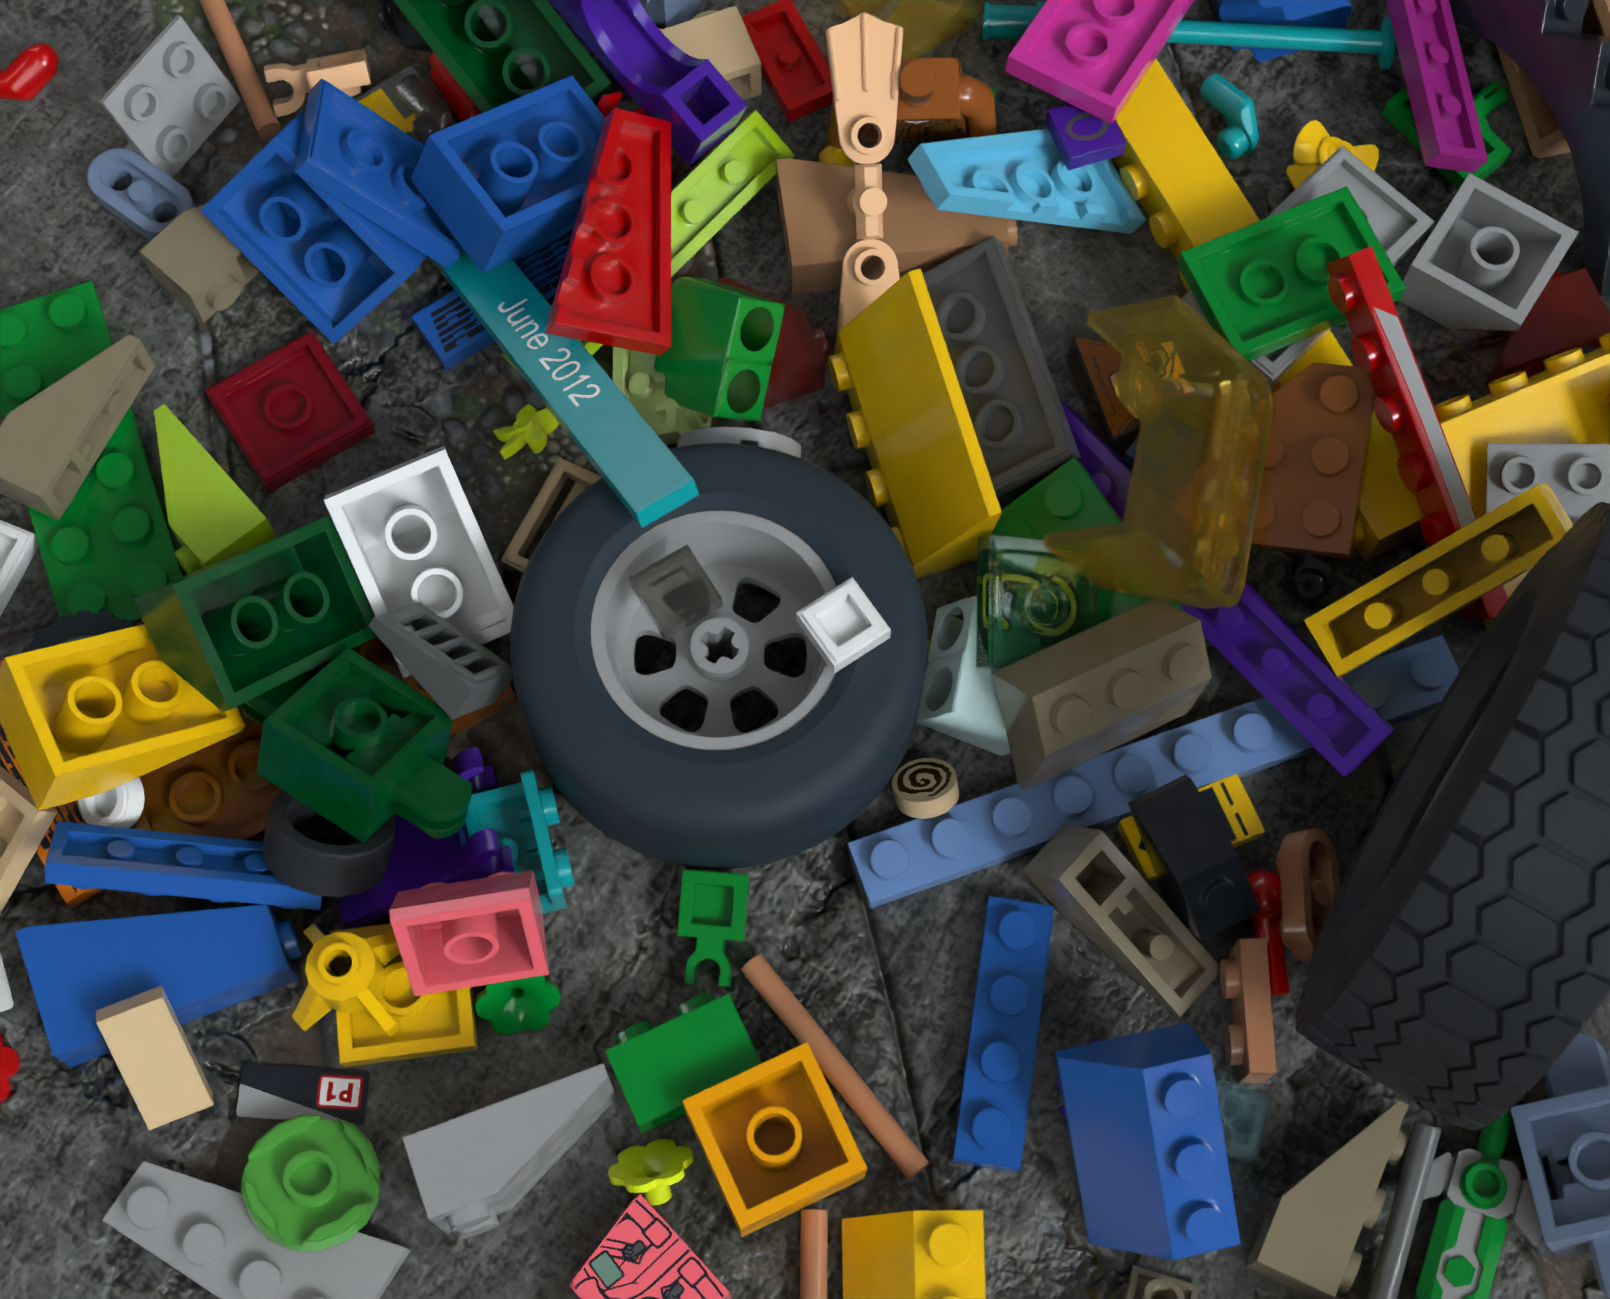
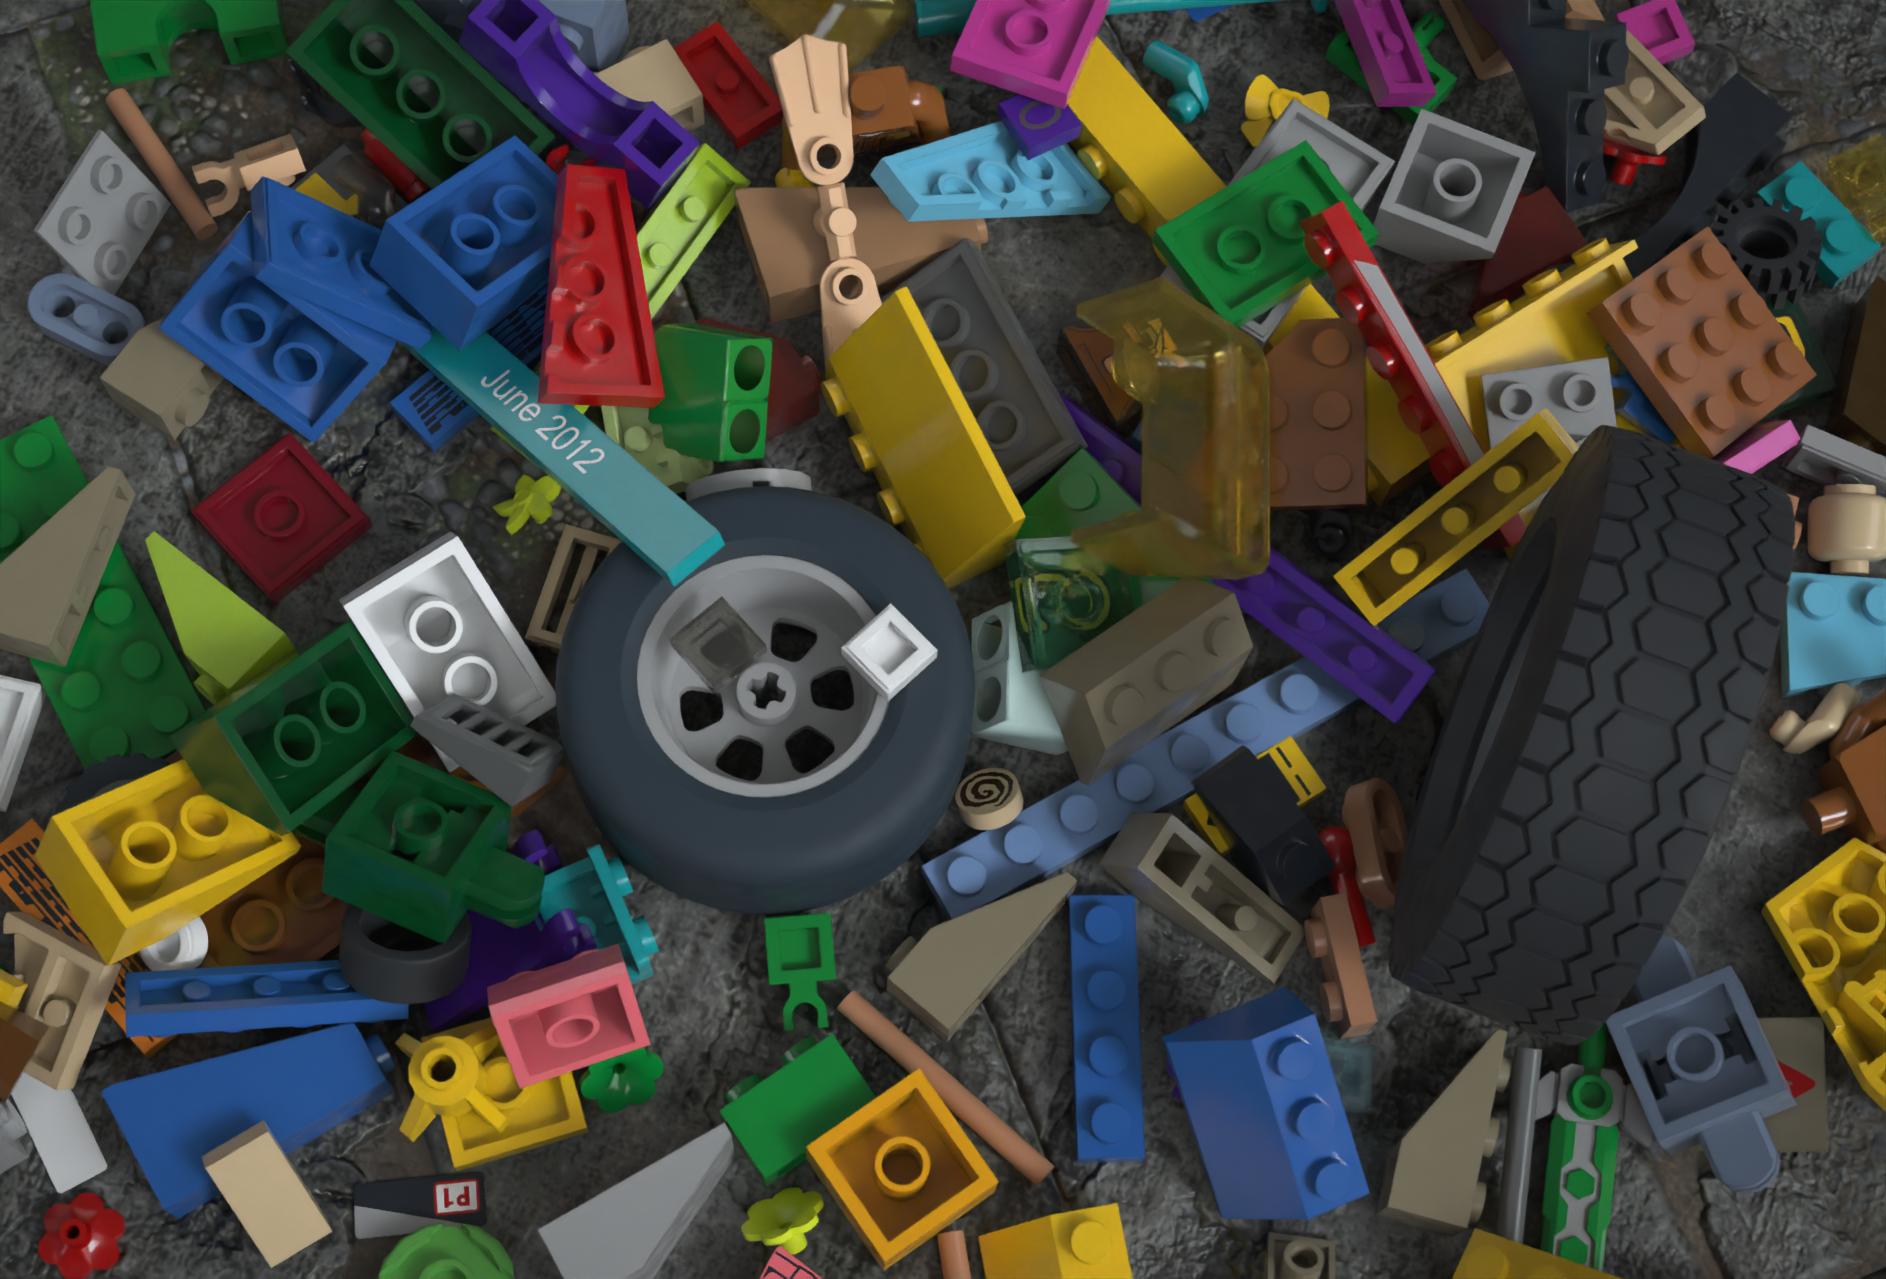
camera: 15 degrees left, 0 degrees up
(879, 938) = (967, 956): none -> dark tan slope

